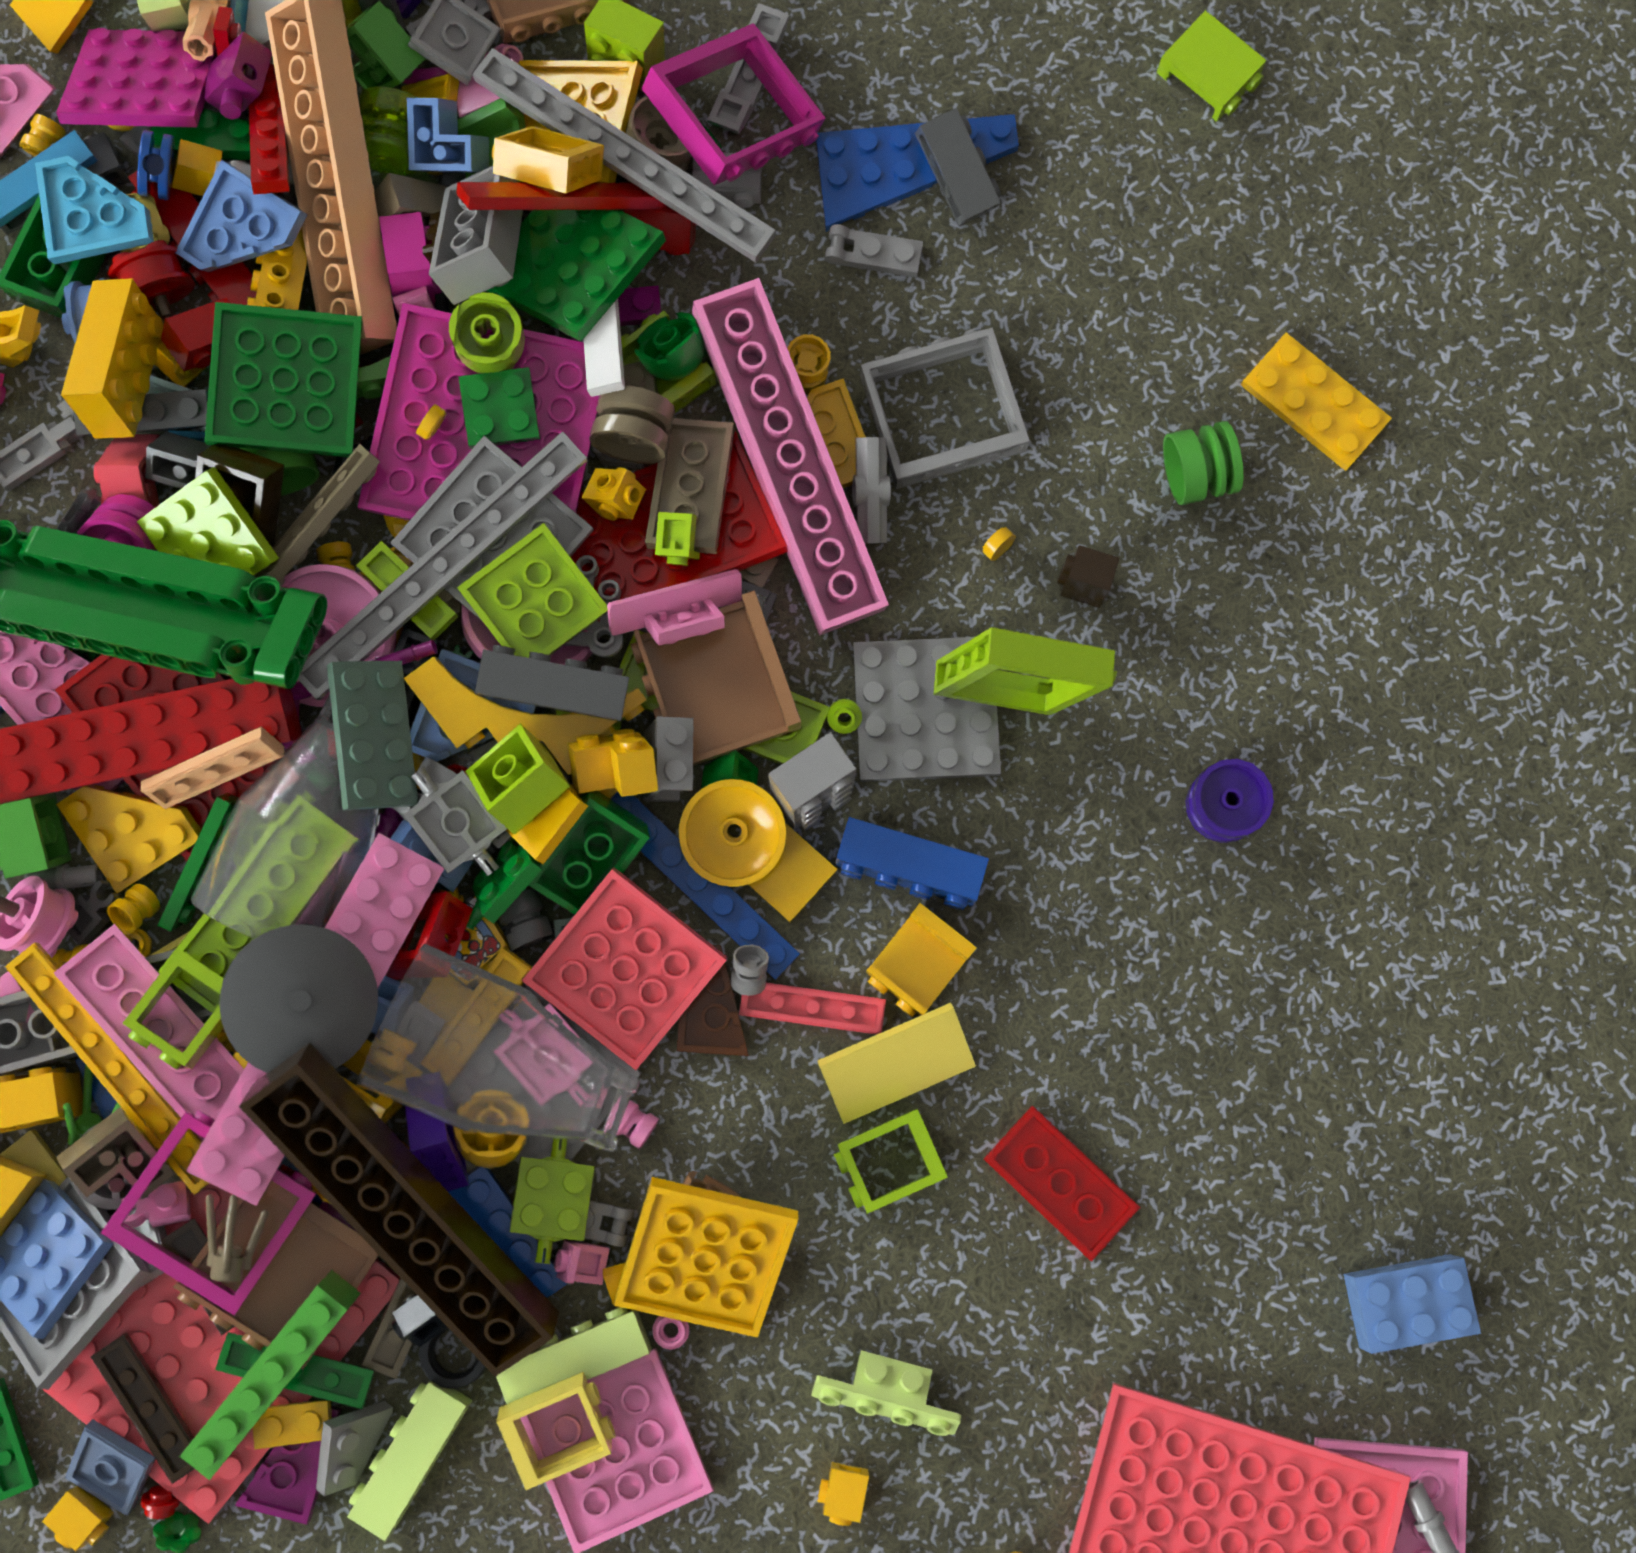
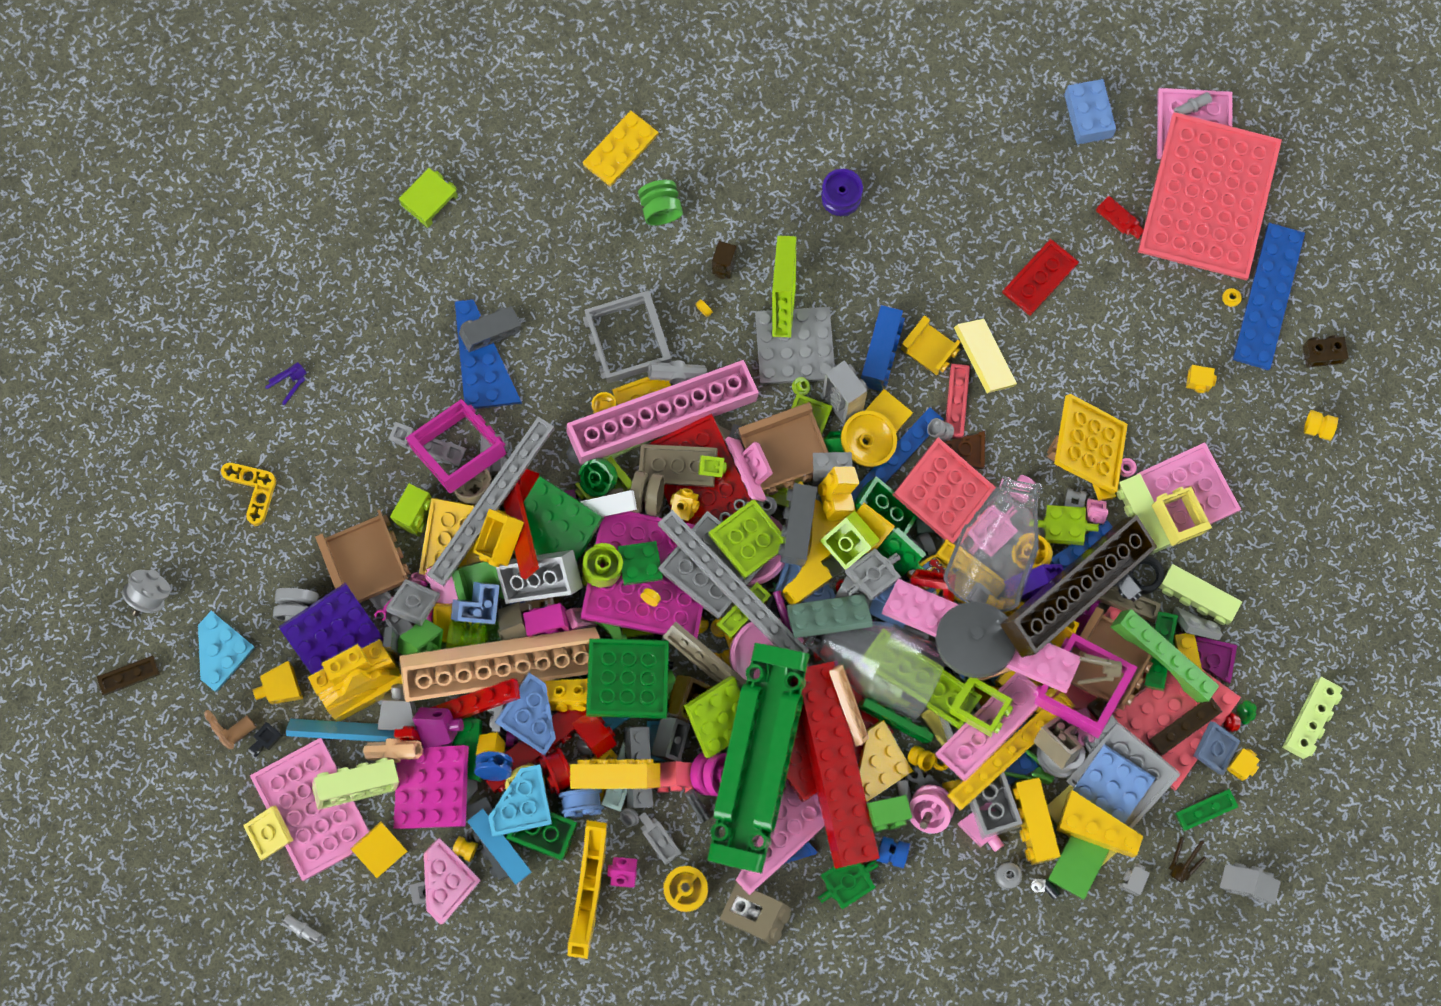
camera: 90 degrees left, 5 degrees down
(874, 251) = (535, 375): light grey plate -> none
(889, 1390) = (1149, 357): yellowish green bracket -> none
(924, 1144) = (1026, 342): lime window -> none
(1186, 1350) = (1119, 217): none -> red hinge

